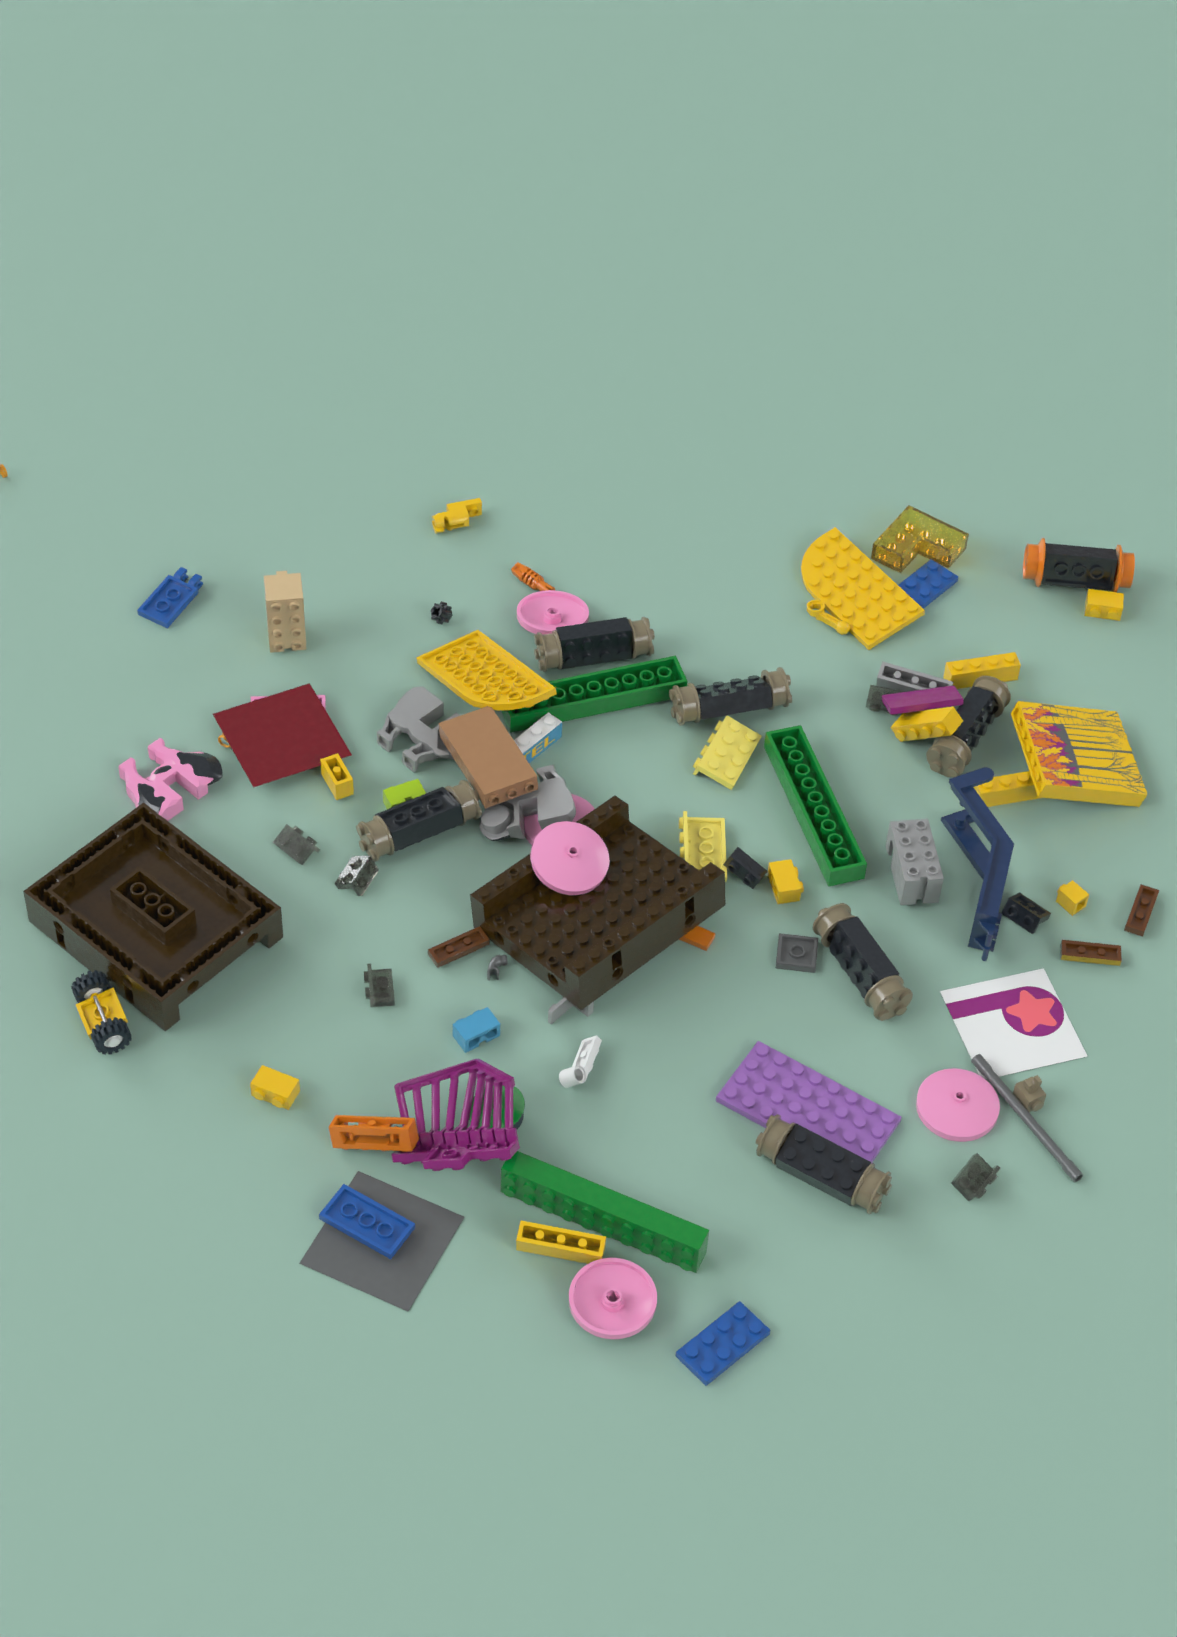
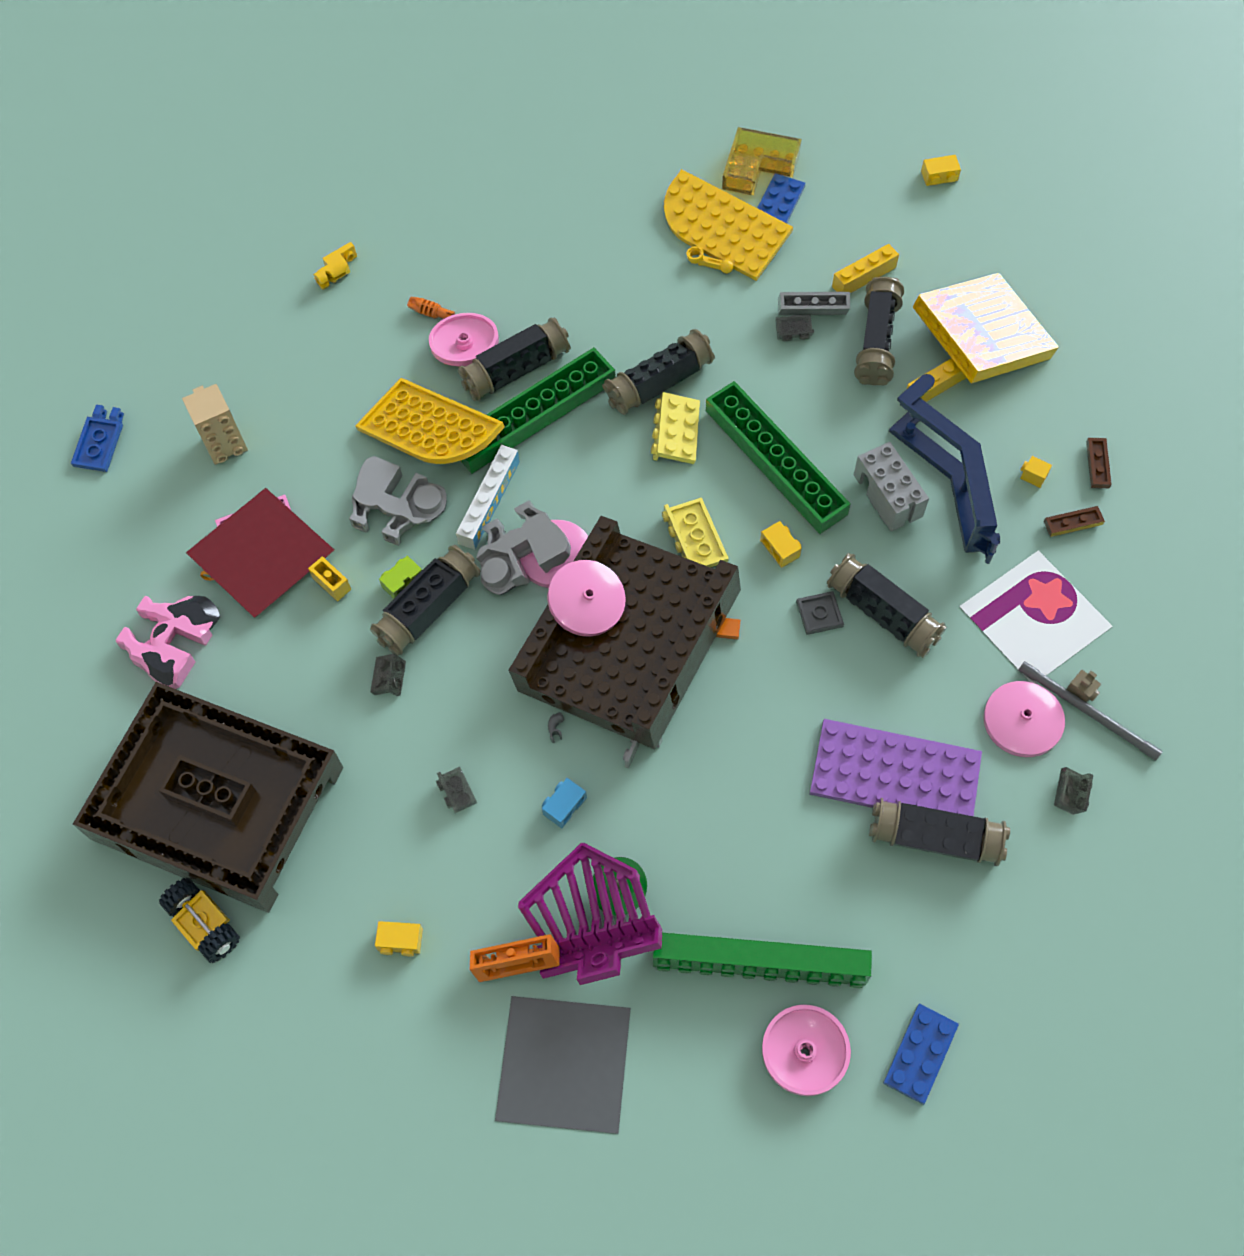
camera: 15 degrees left, 15 degrees up
(295, 844) = (317, 662): clear smoke bracket -> none
(367, 1221) = (543, 1052): blue plate -> none
(441, 613) = (360, 371): black gear -> none
(458, 946) = (512, 719): reddish brown plate -> none
(488, 756) = (466, 513): medium nougat brick -> none
(560, 1242) = (735, 1008): yellow brick -> none
(583, 1063) = (676, 803): white plate -> none
(745, 868) = (740, 542): black bracket -> none
(922, 700) = (832, 319): magenta tile -> none
(926, 724) = (846, 343): yellow brick -> none
(1025, 912) = (1005, 500): black bracket -> none
(1078, 566) = (908, 140): black brick -> none

